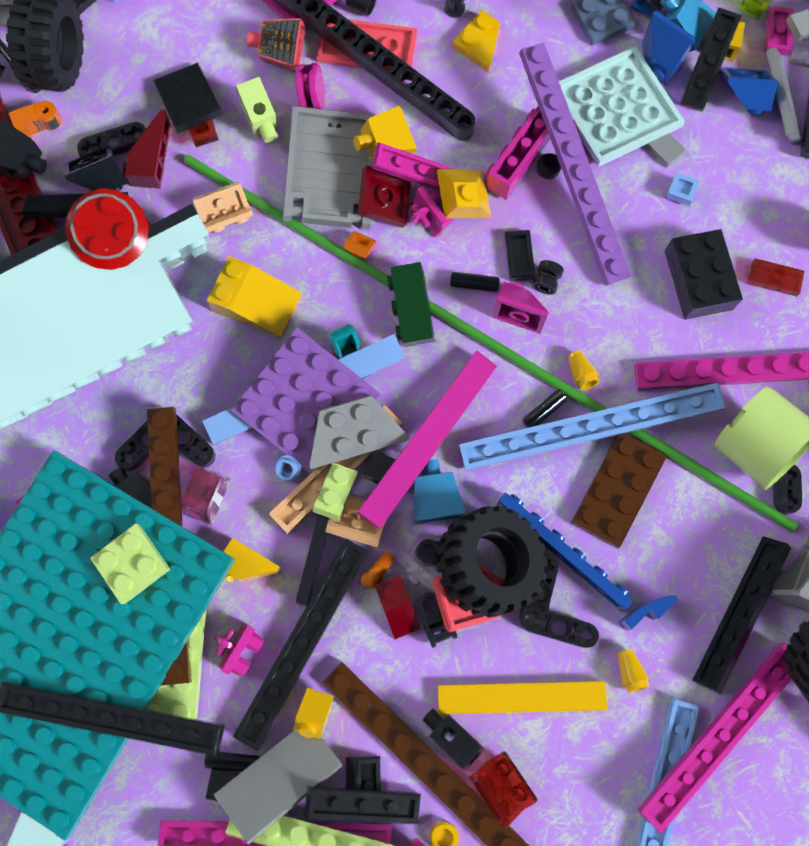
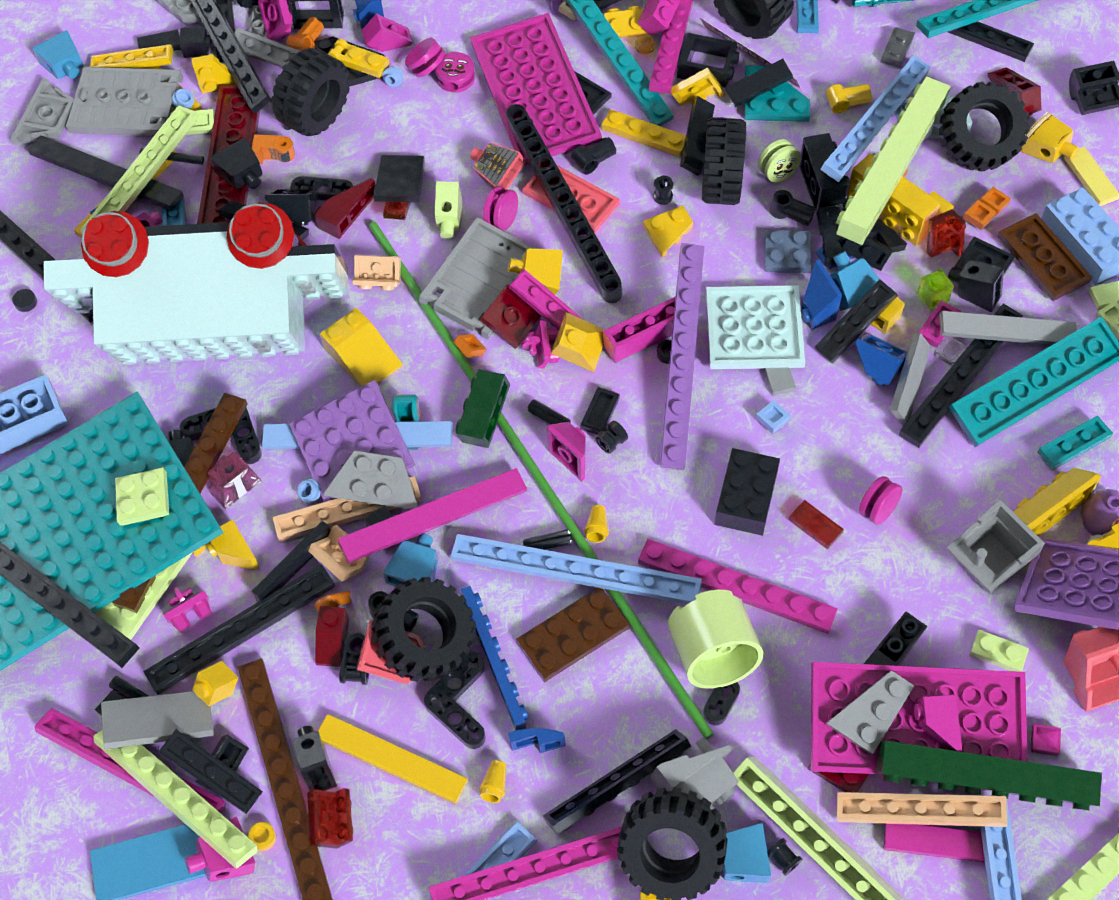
camera: 30 degrees right, 15 degrees down
(335, 491) = (332, 521): yellowish green plate -> none

